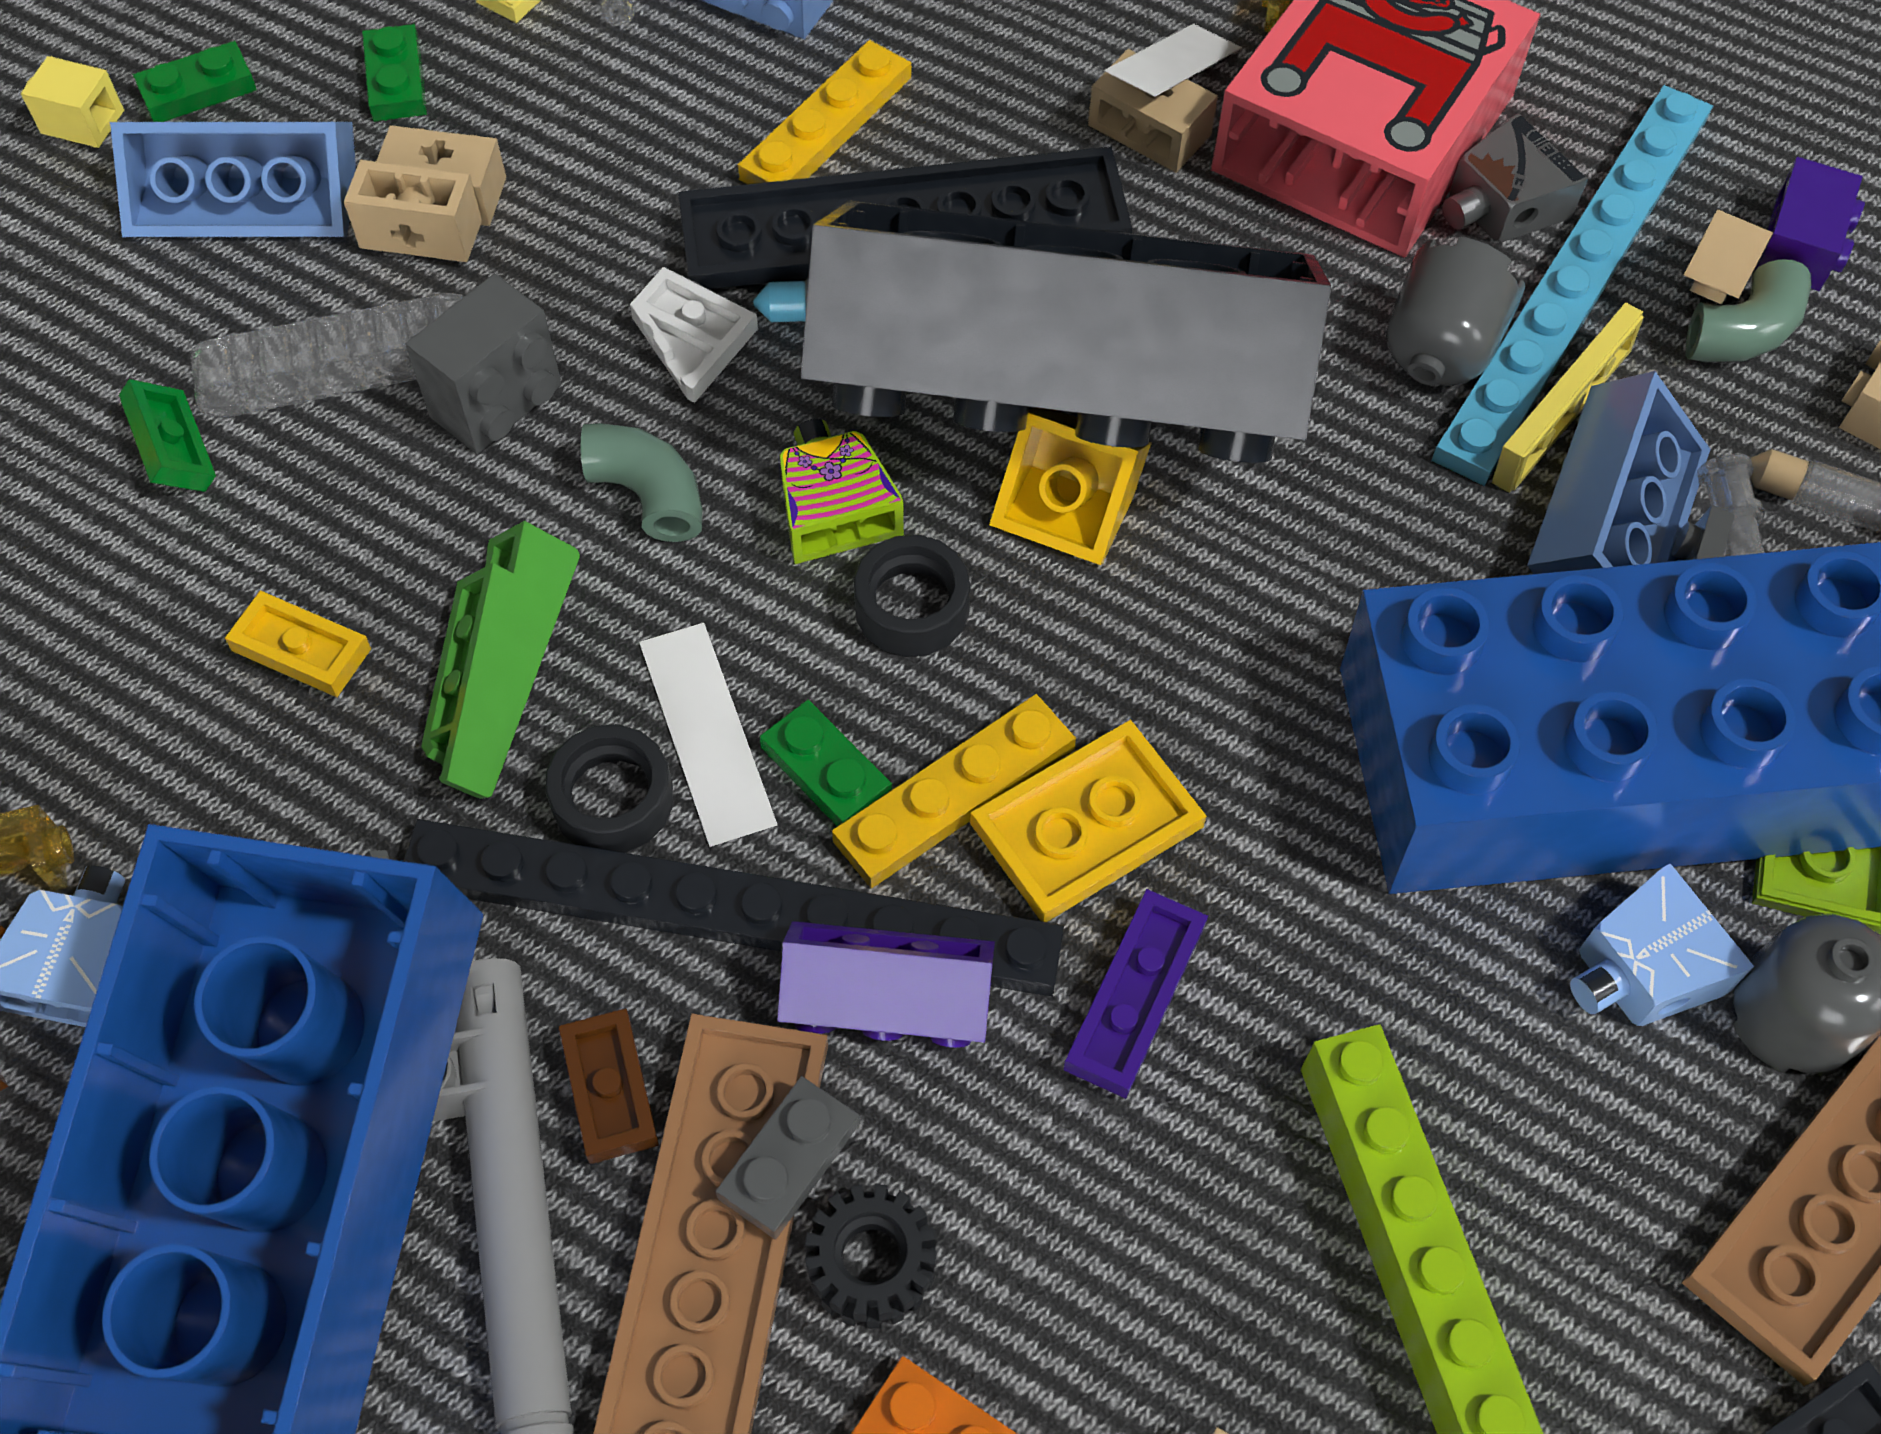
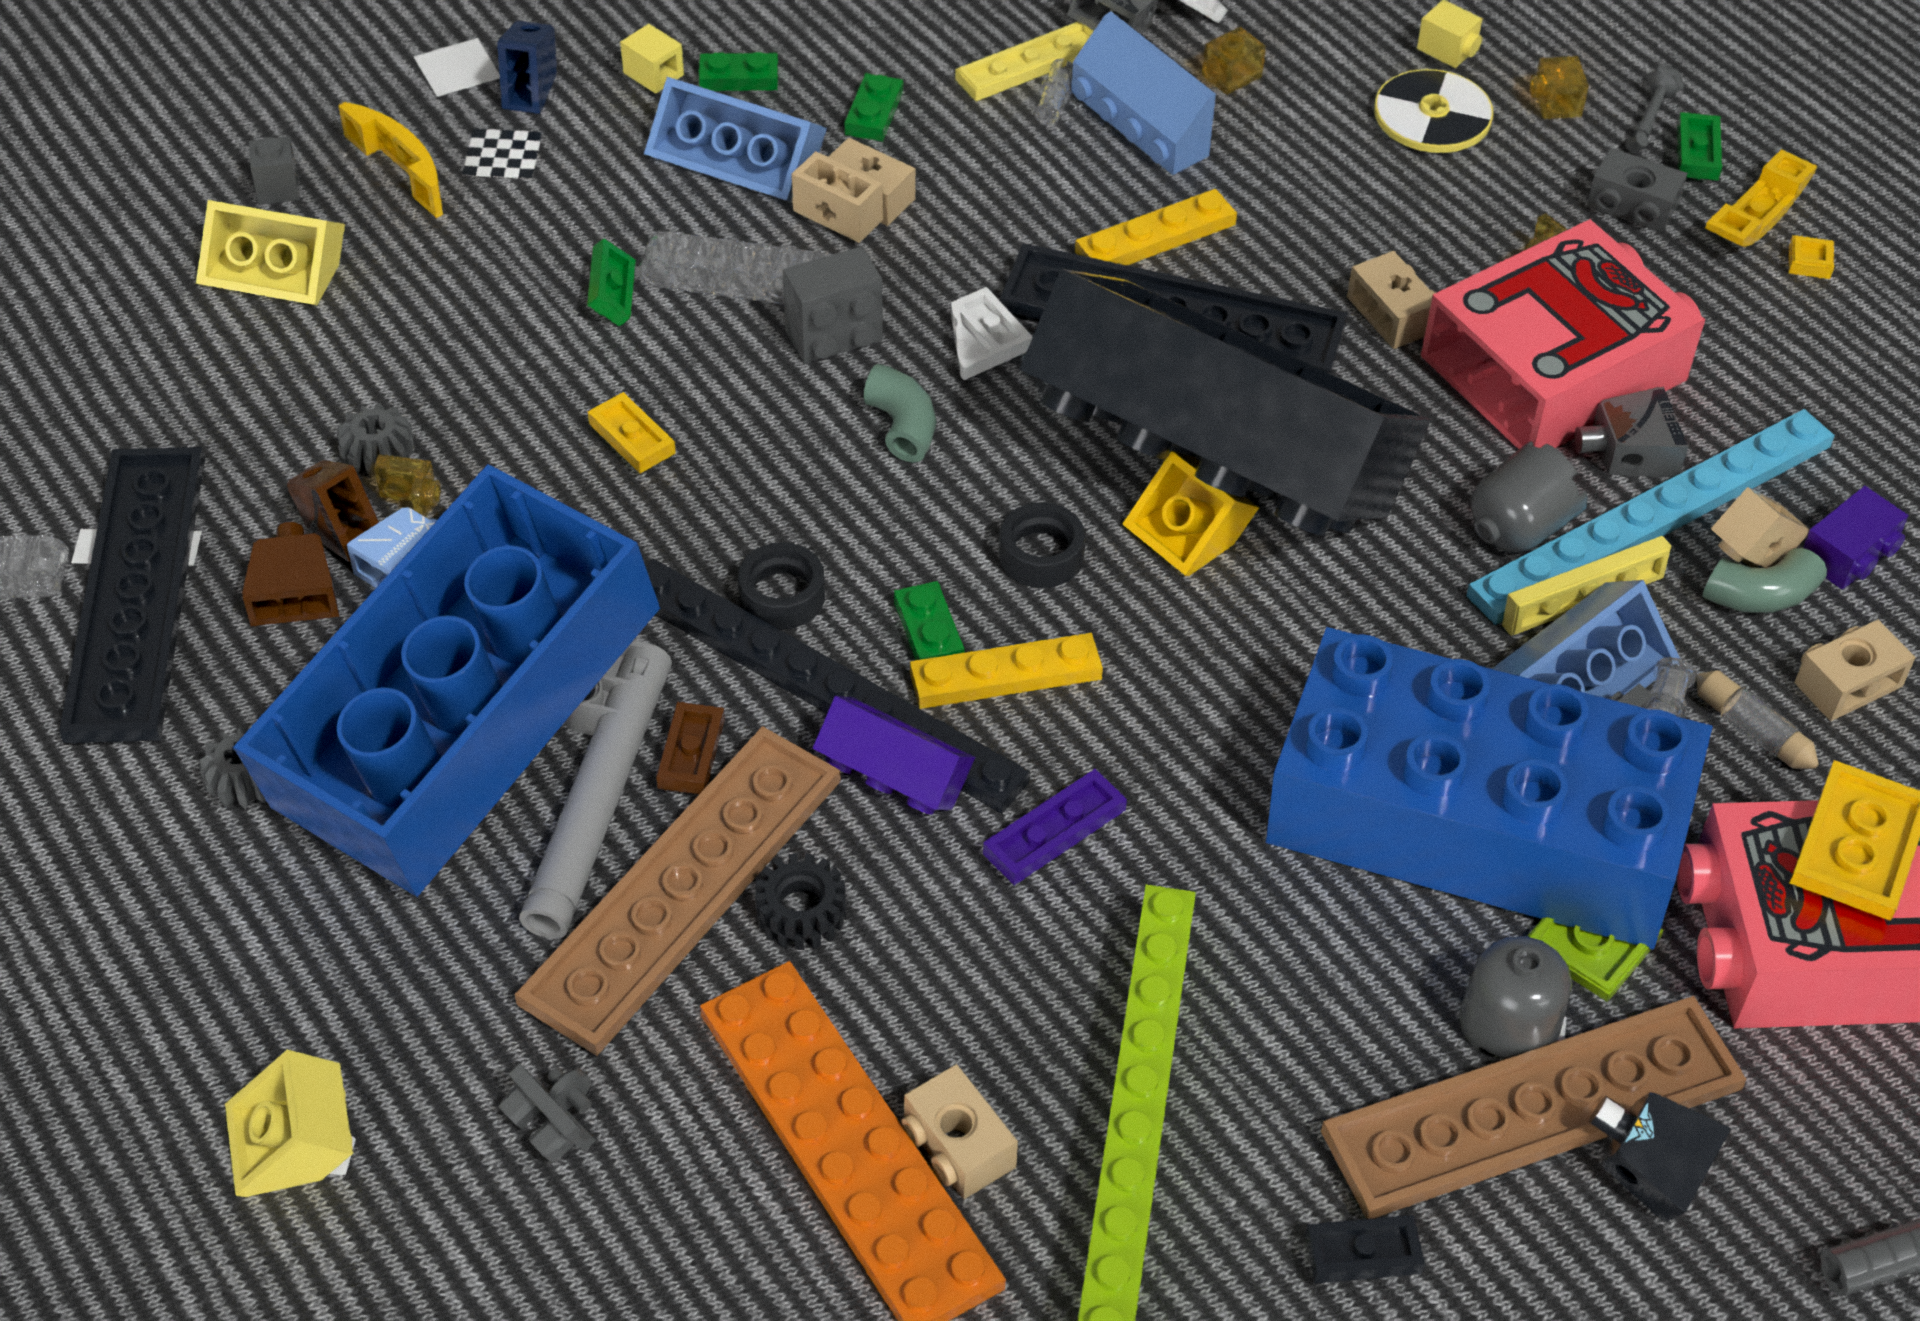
camera: 25 degrees right, 10 degrees down
(494, 653) = (752, 480): bright green wedge -> none
(707, 735) = (863, 581): white sticker -> none
(788, 1157) = (777, 822): dark grey plate -> none
(836, 493) = (1022, 464): lime torso -> none
(1087, 820) = (1082, 718): yellow plate -> none
(1172, 59) = (1421, 268): white sticker -> none
(1658, 954) = (1422, 939): light blue torso -> none

